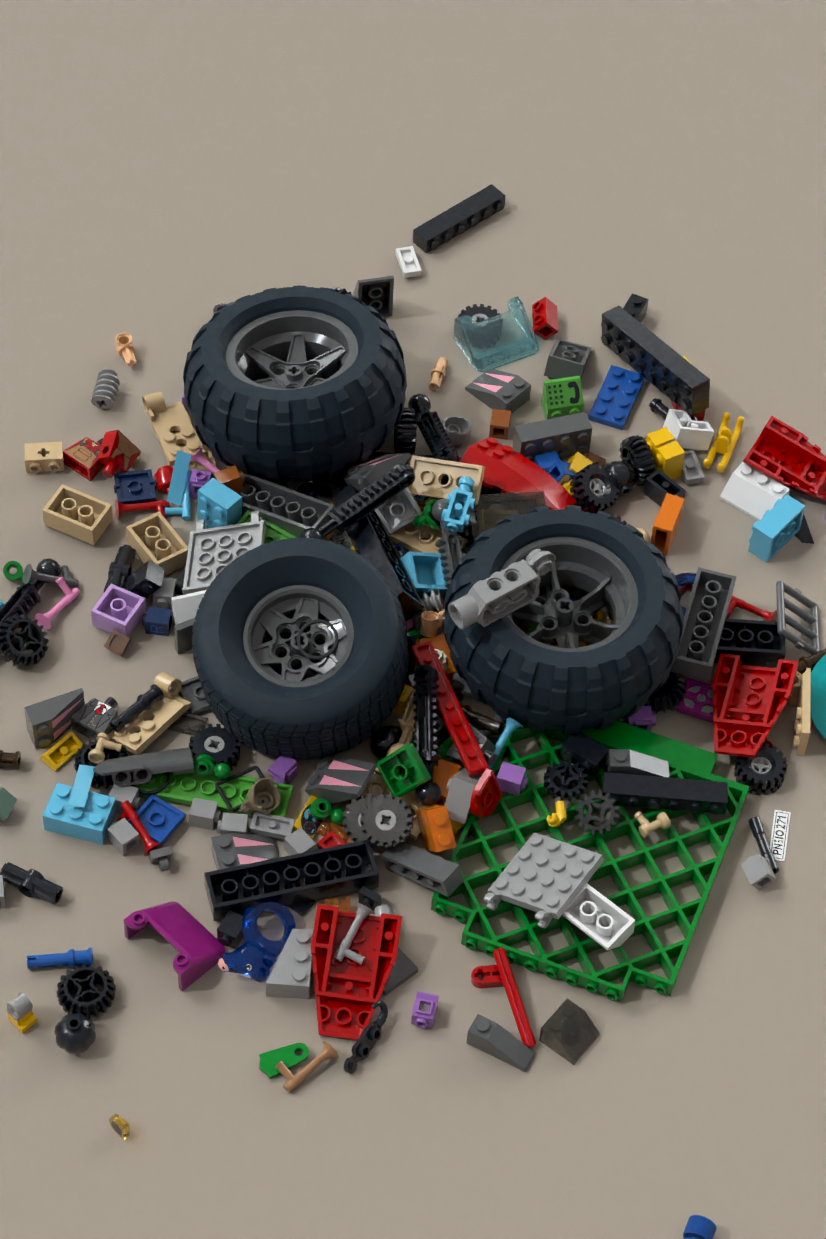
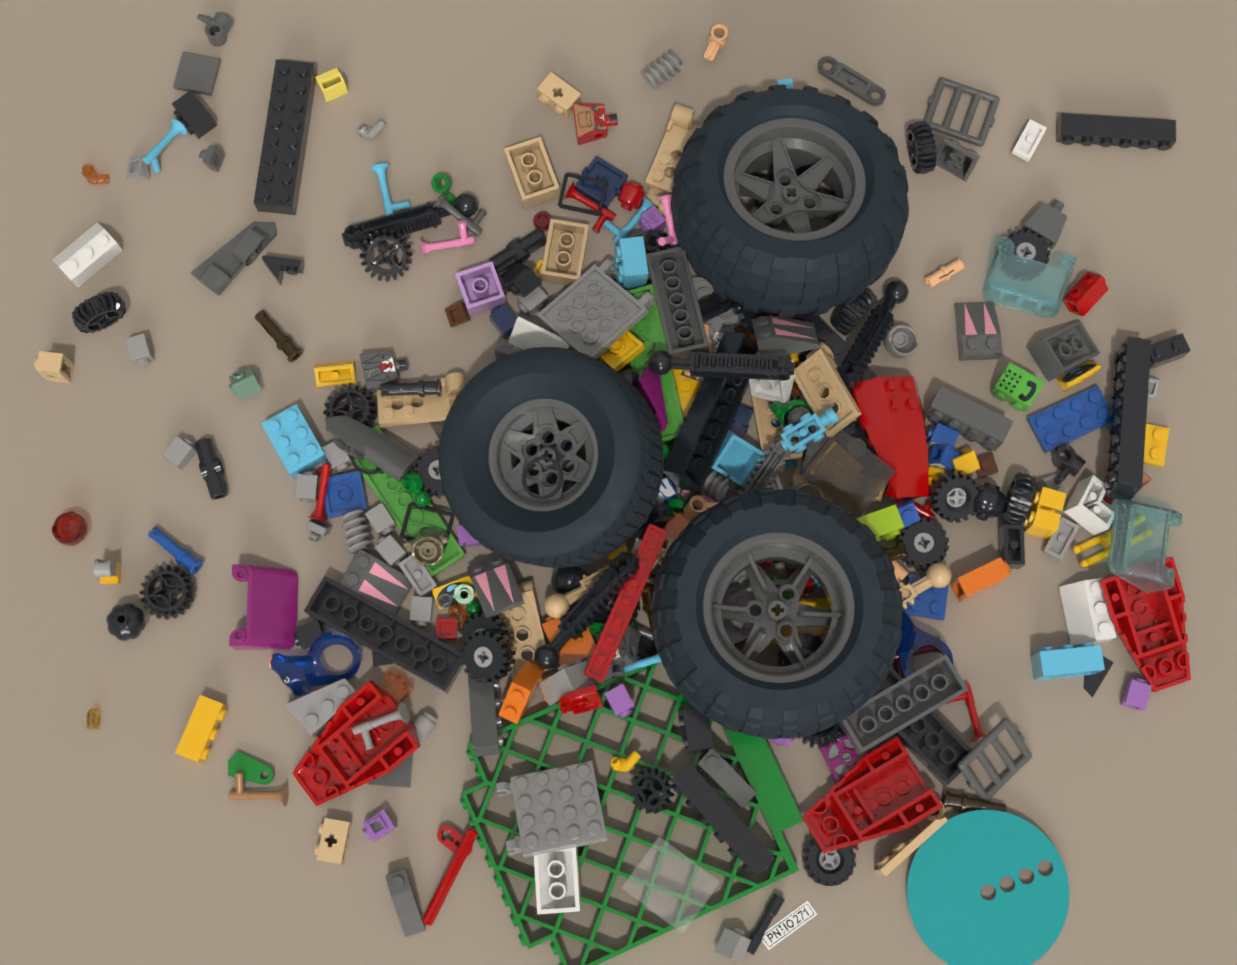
camera: 45 degrees right, 25 degrees up
(52, 717) = (343, 344): dark grey slope -> none
(81, 786) = (308, 423): medium azure sticker -> none
(97, 755) = (357, 399): tan piece -> none
(116, 541) = (542, 221): none -> dark red plate
(117, 453) = (611, 141): red torso -> none
(138, 515) = (579, 209): none -> black piece
(179, 477) = (637, 203): medium azure sticker -> none
(191, 835) = (354, 531): none -> light grey piece
(216, 1060) = (201, 729): none -> yellow brick
(231, 478) = (660, 247): dark orange brick -> none
(367, 1040) = (325, 809): black piece -> none
(369, 270) = (977, 95): none -> dark grey bar
(369, 898) = (427, 700): black plate -> none
(392, 767) = (539, 626): green brick -> none
(401, 1048) = (341, 832): none -> tan brick
(474, 293) = (1048, 222): none -> dark grey torso
(500, 424) = (945, 364): dark orange brick -> none
(502, 591) = (680, 569): light grey brick -> none
(569, 1032) = (462, 941): clear smoke slope -> none
(575, 783) = (664, 747): black gear -> none
(592, 369) = (1078, 375): none -> slope
(642, 419) = (1071, 466): none -> black piece
(646, 827) = (681, 834): tan piece -> none
(657, 406) = (1095, 462): black pin -> none
(675, 866) = (670, 885): none -> clear piece
(748, 422) = (1140, 544): none -> clear light blue windscreen

